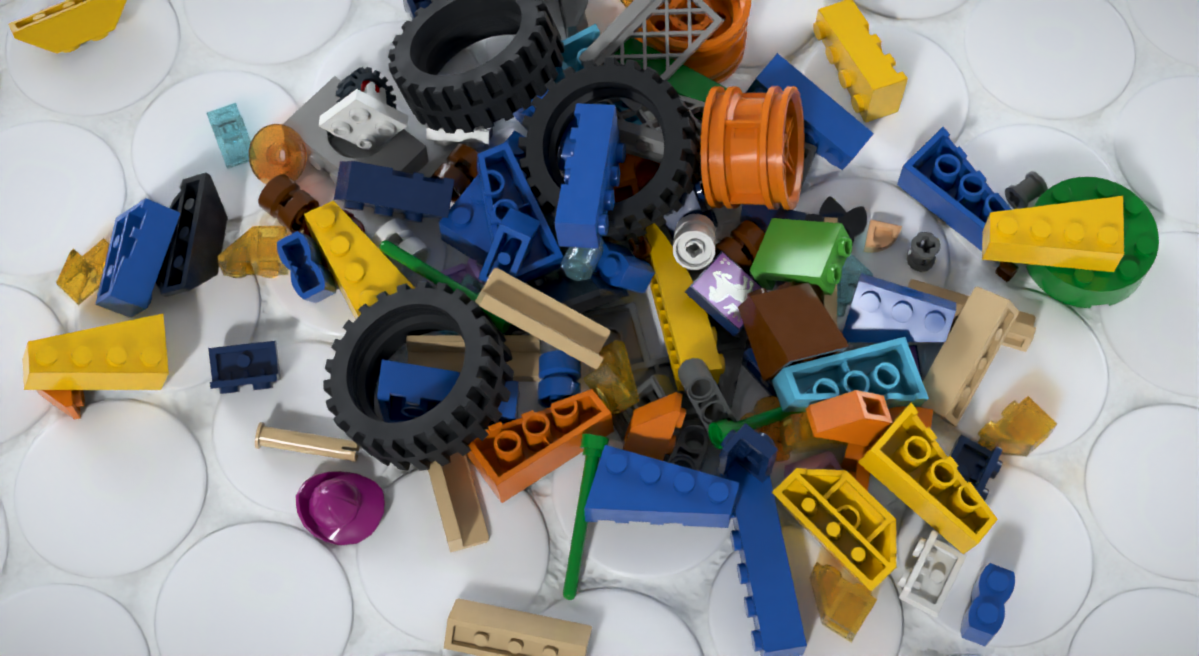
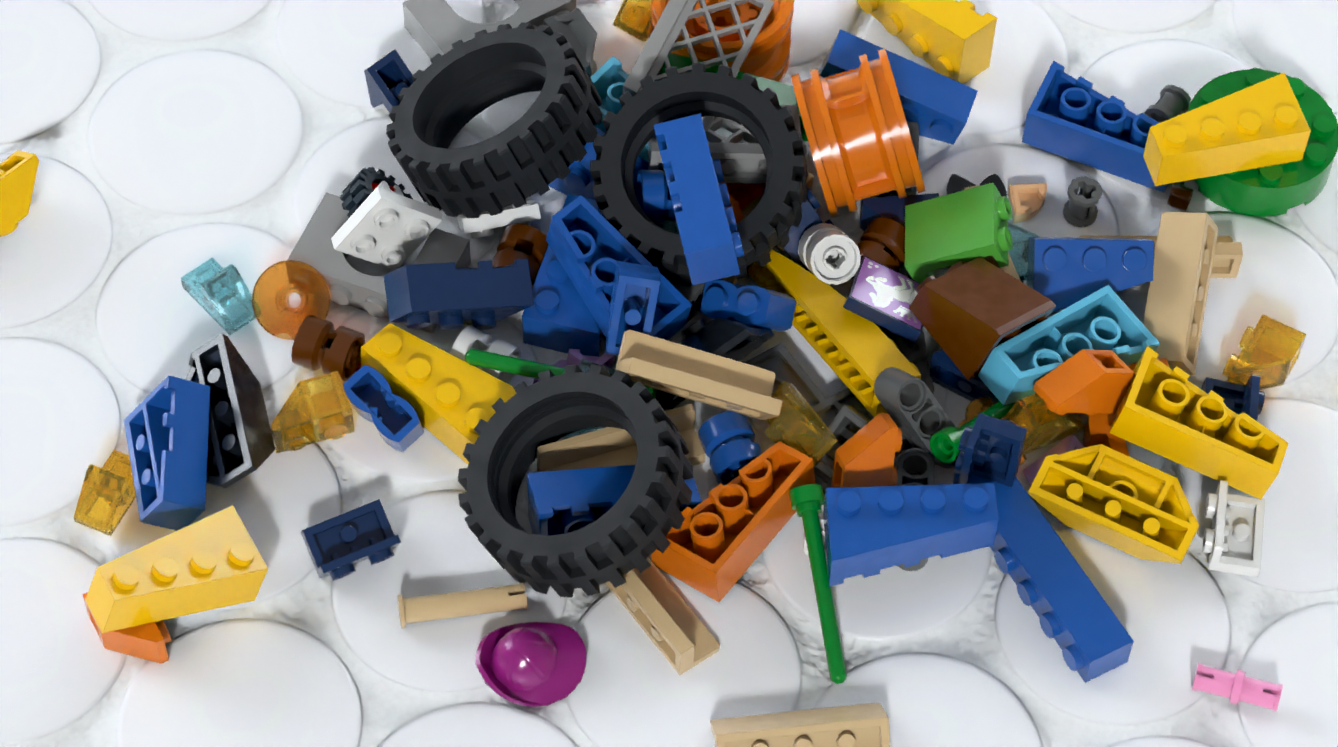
camera: 20 degrees left, 10 degrees down
(581, 262) = (713, 302): clear light blue brick -> none
(642, 249) = (771, 279): reddish brown hand -> none
(839, 602) = (1146, 590): clear yellow slope -> none
(987, 604) = (1309, 543): blue brick -> none

